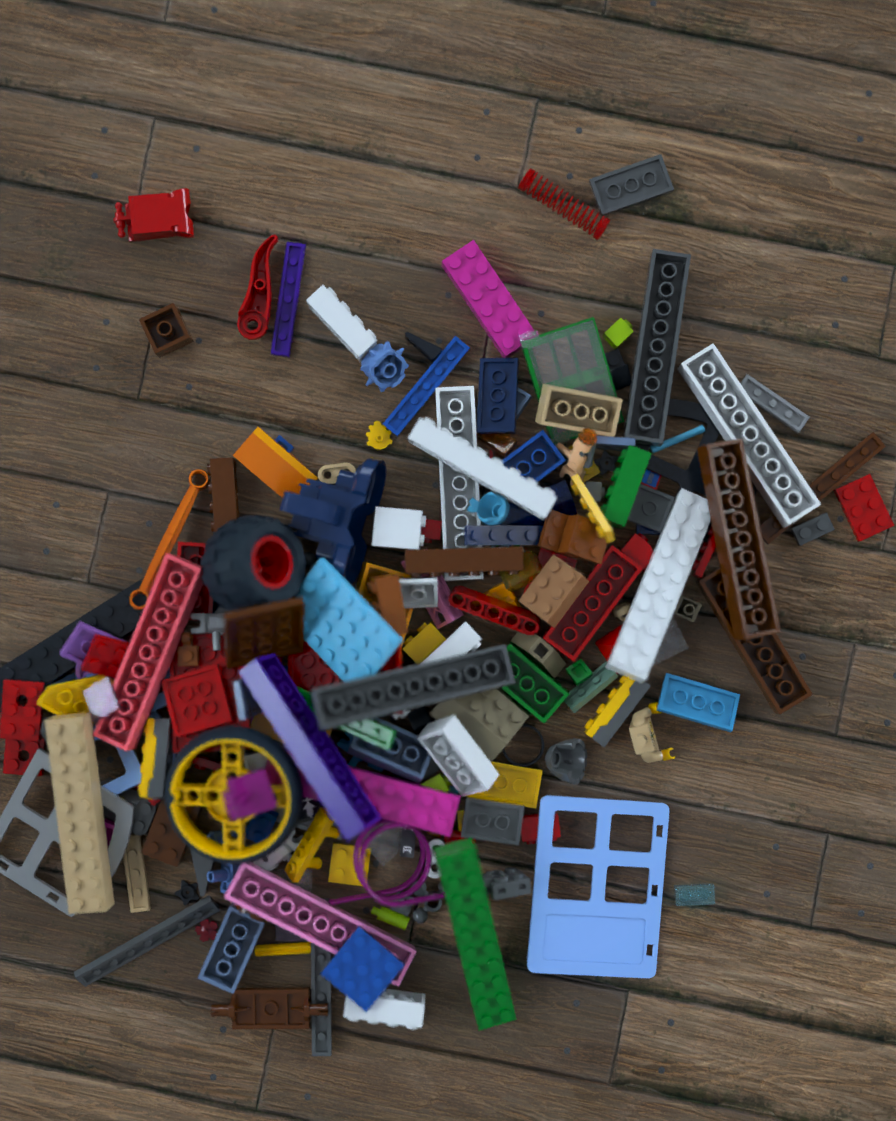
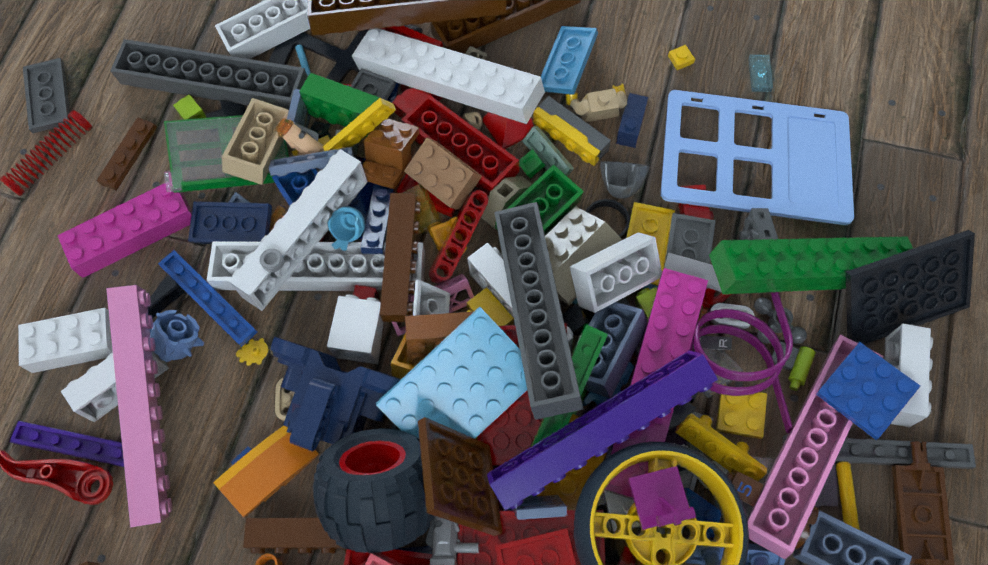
camera: 85 degrees left, 20 degrees down
(278, 862) = (747, 487): none -> reddish brown brick
(314, 356) = (138, 405): none -> bright pink brick
(377, 271) = (65, 340): none -> white brick
(440, 452) = (271, 260): none -> light grey tile
(460, 1014) = (910, 287): none -> black plate
(465, 819) = (693, 268): none -> light grey tile
(557, 466) = (303, 162): none -> sand blue plate
(571, 279) = (126, 154): none -> reddish brown plate
(635, 768) = (632, 120): none -> dark blue slope
(711, 816) = (681, 57): none -> yellow plate

